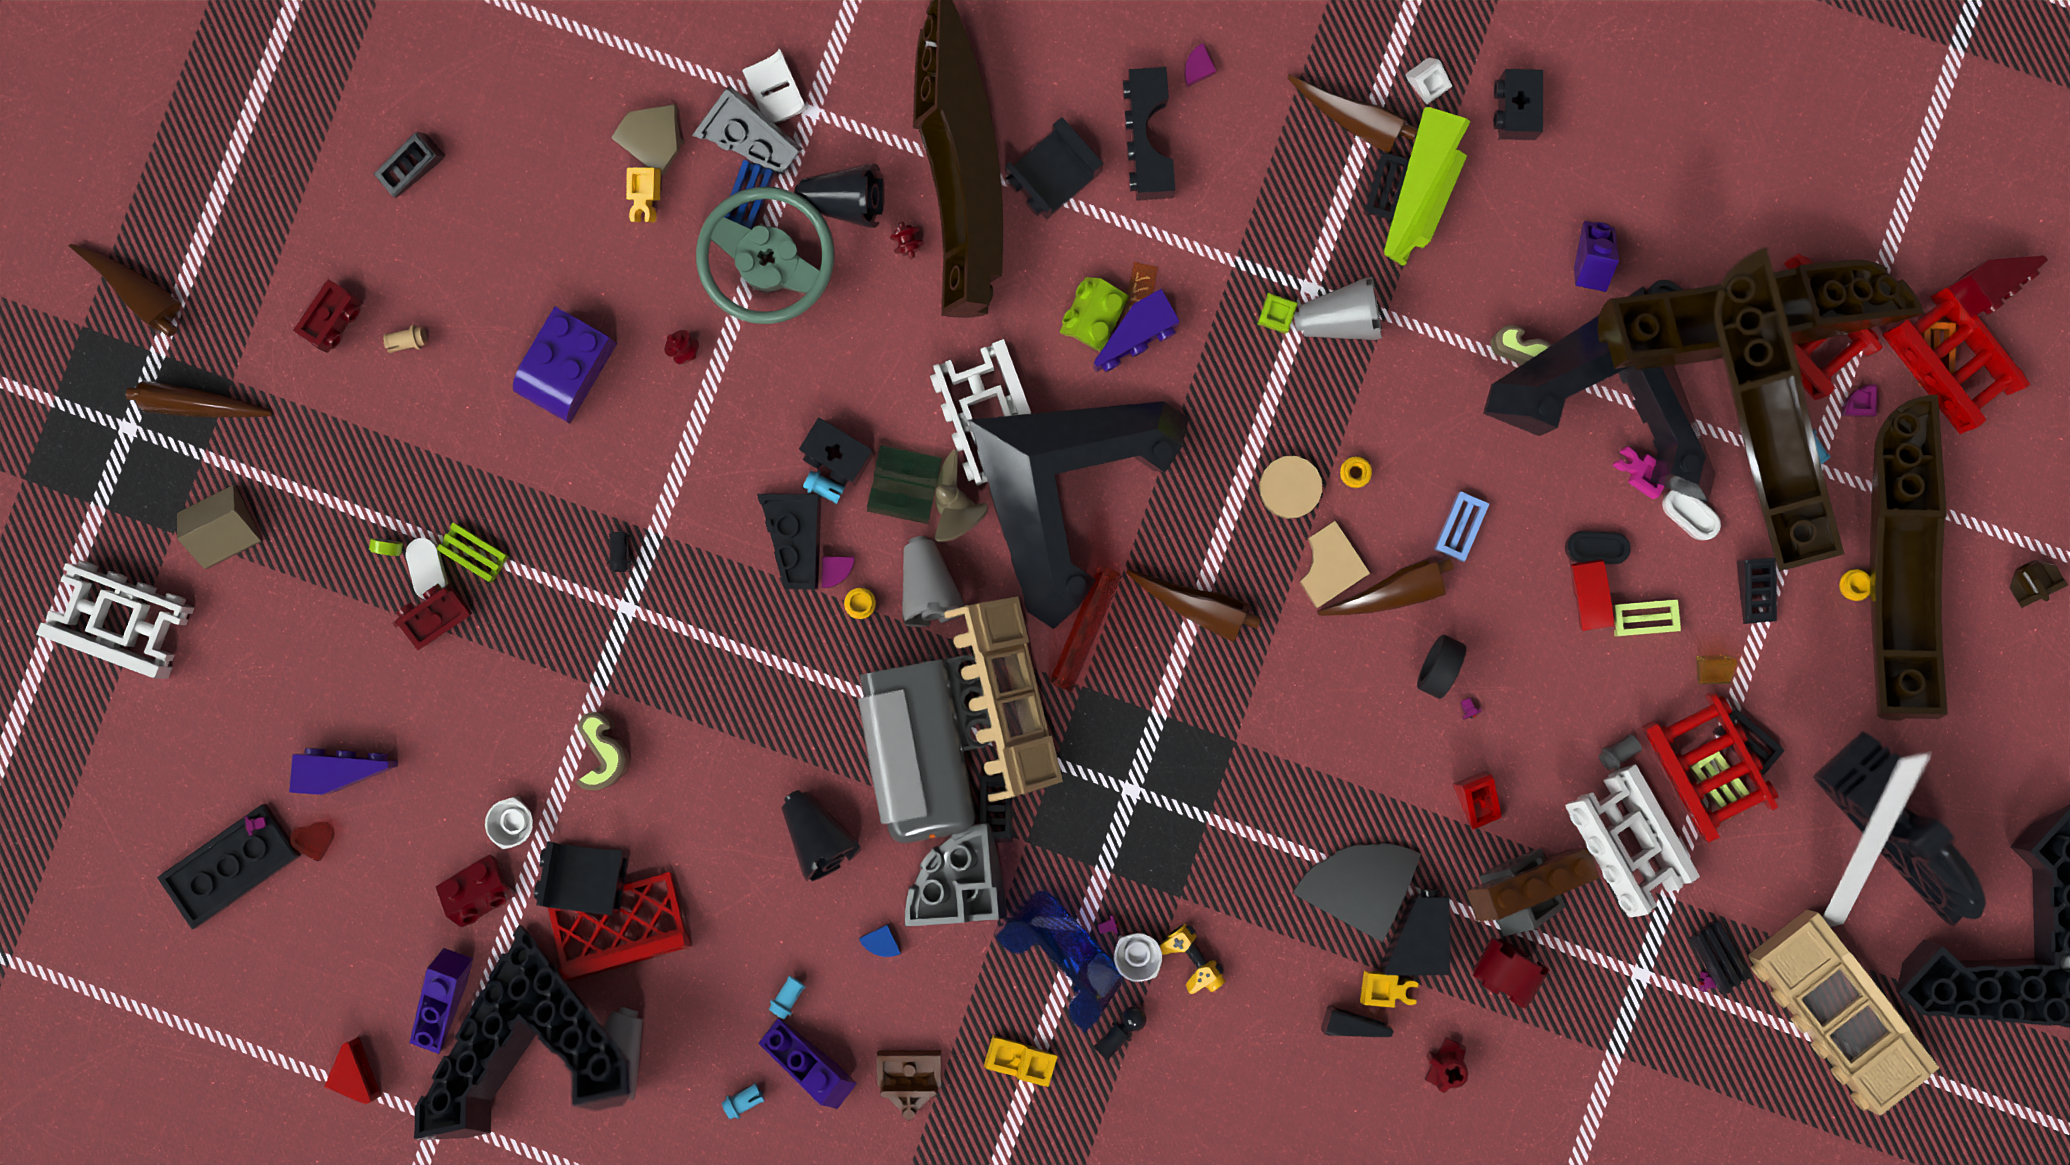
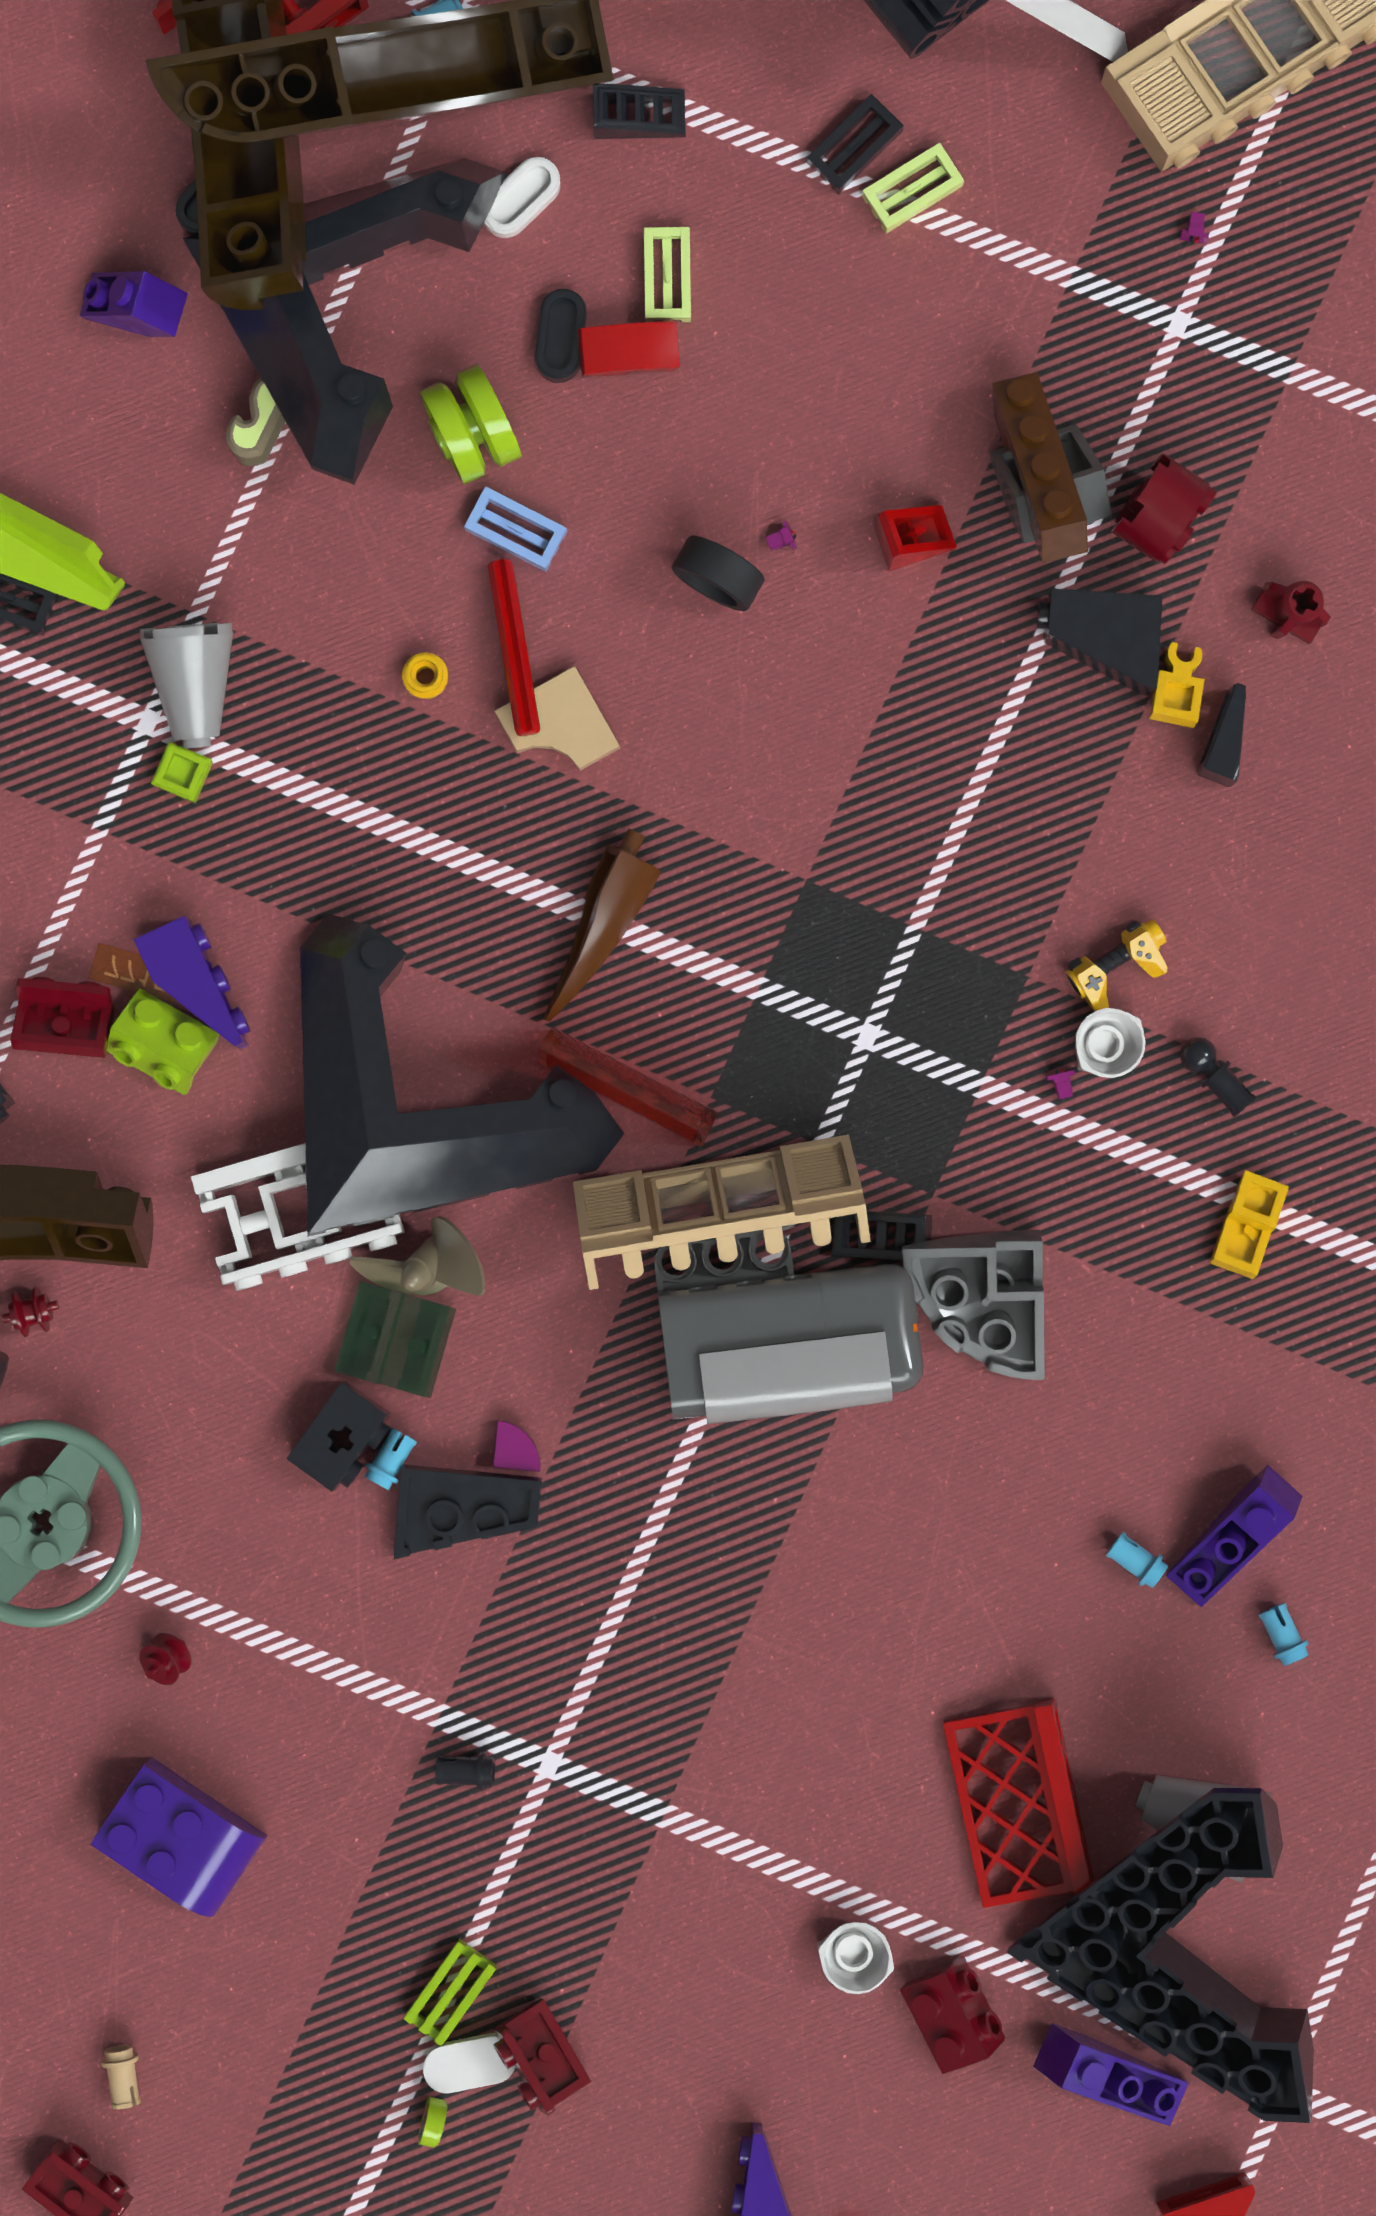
camera: 90 degrees left, 0 degrees up
(582, 879) = (945, 1853): black panel -> none
(609, 750) = (757, 1803): dark tan animal -> none
(816, 836) = (904, 1500): black cone -> none
(860, 603) = (566, 1416): yellow plate -> none
(881, 942) = (1065, 1417): blue tile -> none
(909, 1078) = (1264, 1389): reddish brown slope -> none
(926, 584) = (546, 1314): light grey cone -> none
(1070, 947) = (1050, 1172): clear blue windscreen -> none
(1105, 245) = (62, 1017): none -> dark red bracket
(1290, 487) = (440, 772): tan tile -> none
(1361, 885) = (1026, 712): dark grey brick -> none
(1379, 530) = (513, 647): none -> red axle
(1403, 588) = (599, 617): reddish brown piece -> none
(1529, 487) = (467, 425): none -> lime wheel
(1620, 752) = (859, 328): dark grey pin -> none
(1640, 471) = (455, 264): dark pink plate -> none
(1650, 830) = (973, 293): white fence -> none
(1692, 793) = (924, 229): red fence -> none
(1715, 669) = (748, 182): clear yellow slope -> none
(1723, 953) = (1156, 205): black tile -> none

